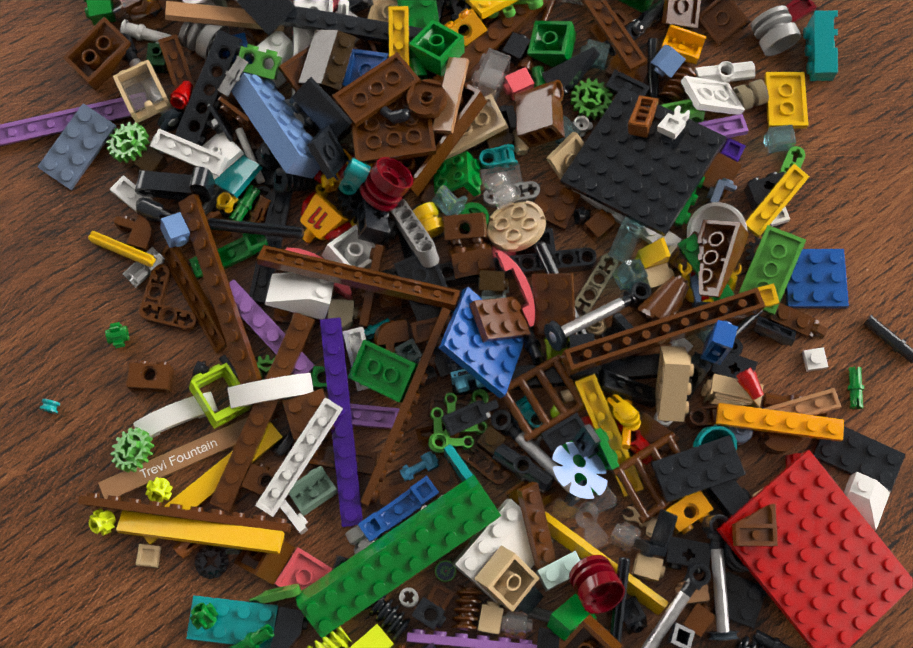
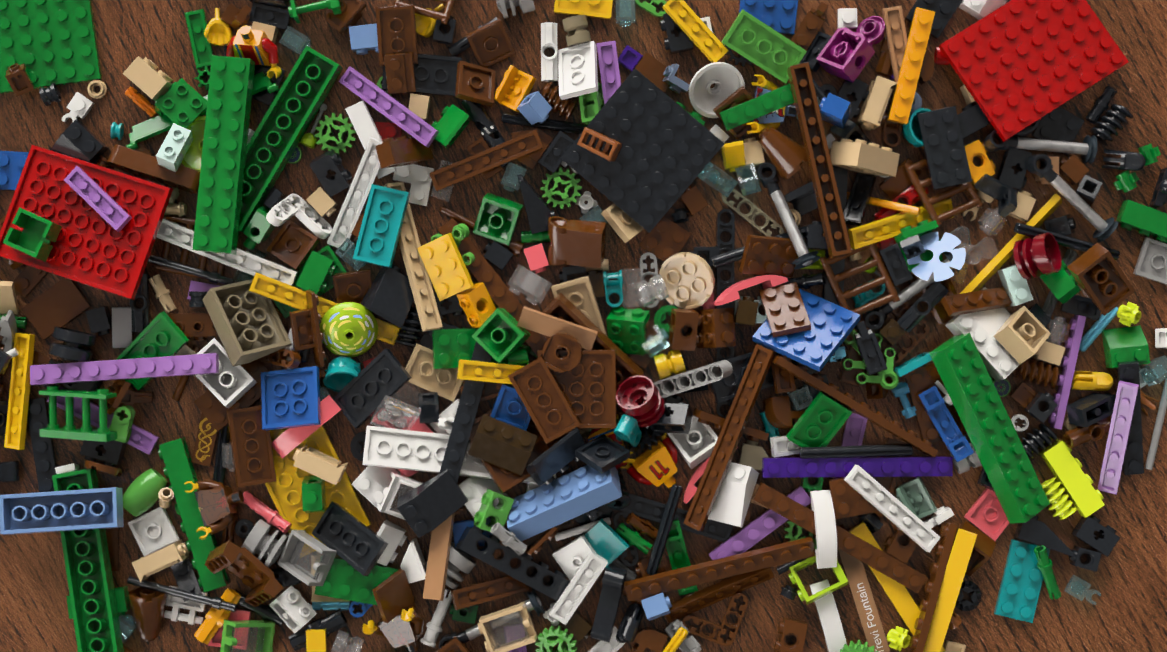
camera: 85 degrees left, 15 degrees up
(181, 95) = (516, 590): red cone -> none
(203, 616) = (1019, 605): green gear -> none
(220, 124) = (550, 552): black piece -> none
(223, 198) = (629, 560): yellow plate -> none
(277, 594) = (1005, 538): bright green piece -> none
(358, 416) = (856, 451): none -> black axle
(396, 116) = (576, 384): black arm -> none
(624, 412) = (887, 207): yellow arm -> none
(673, 124) = (617, 117): white plate -> none
(719, 252) = (747, 94): reddish brown wedge -> none
(749, 382) = (876, 89): red cone -> none
(757, 528) = (1011, 107): reddish brown wing -> none
(769, 295) = (791, 56): yellow plate -> none
(785, 362) = (851, 51): none -> magenta brick

